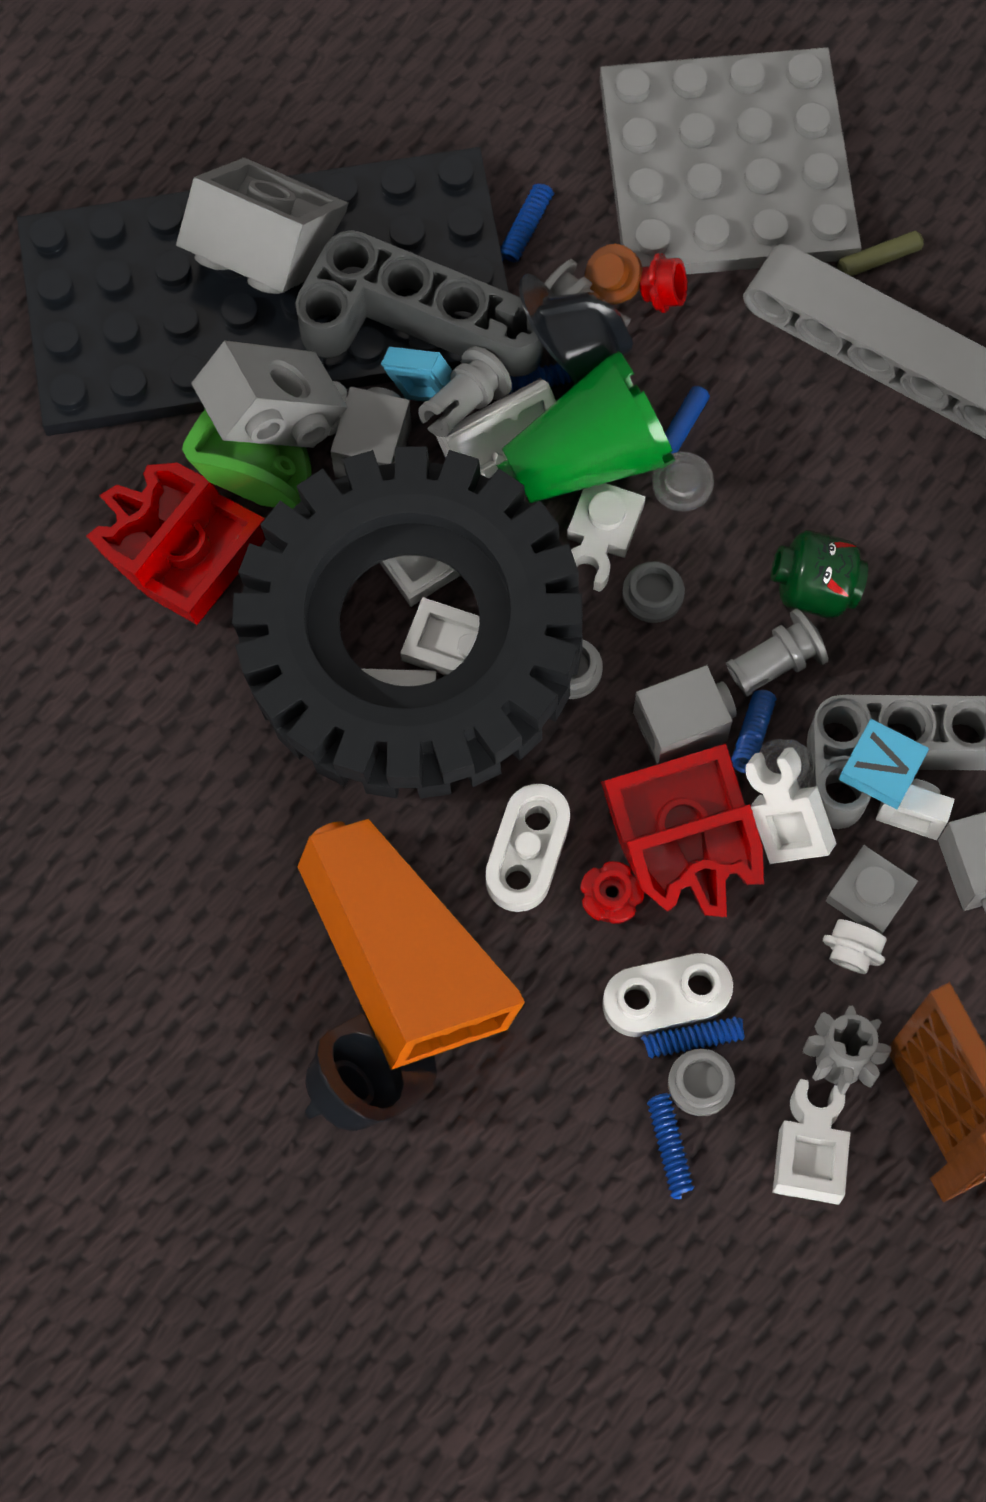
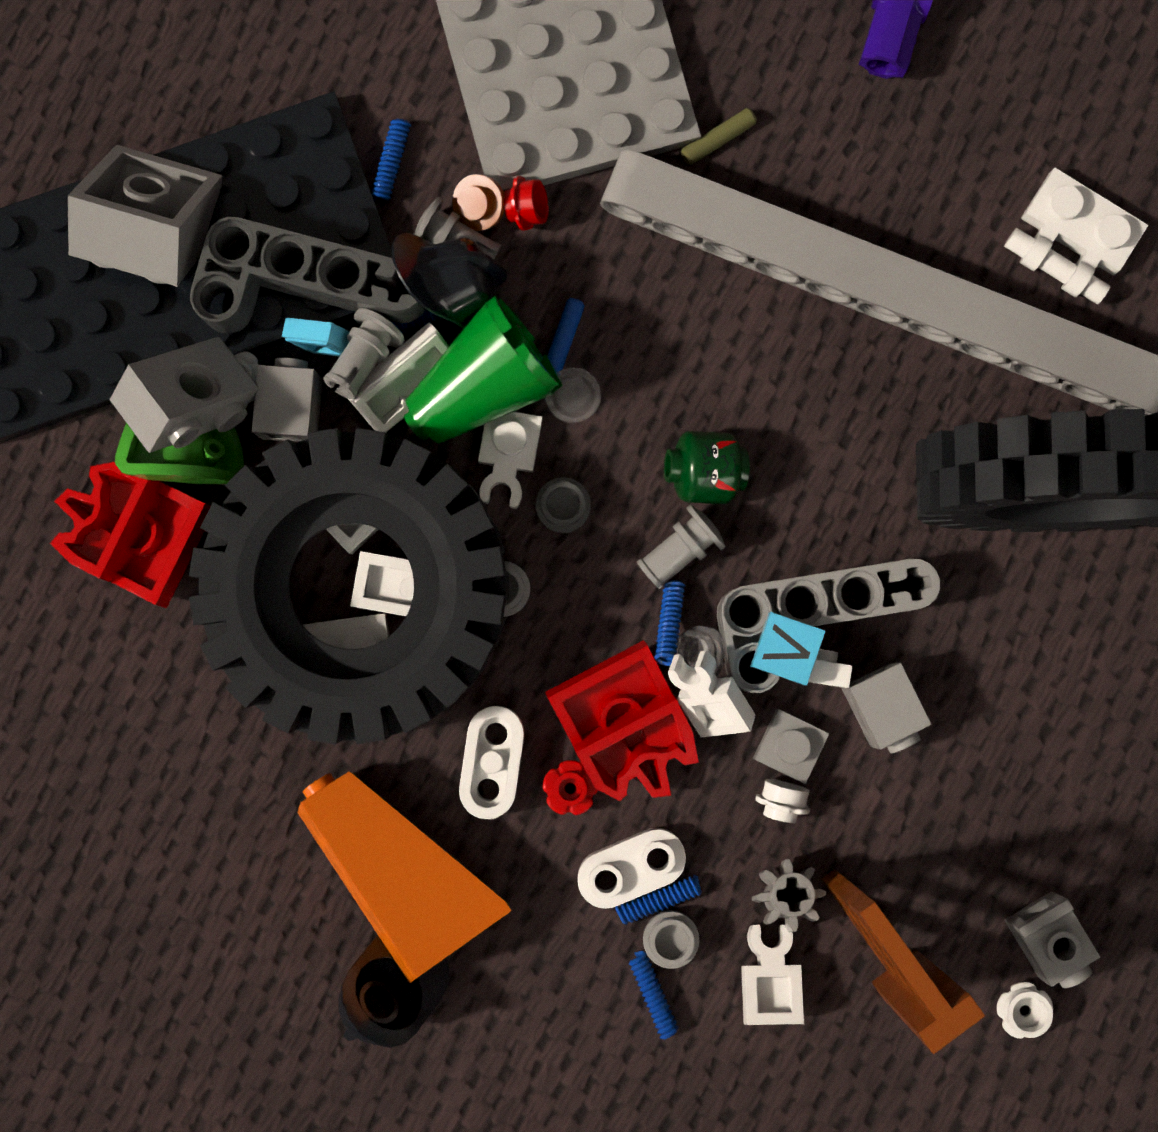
camera: 10 degrees left, 15 degrees up
(684, 714) = (609, 619): light grey brick -> none

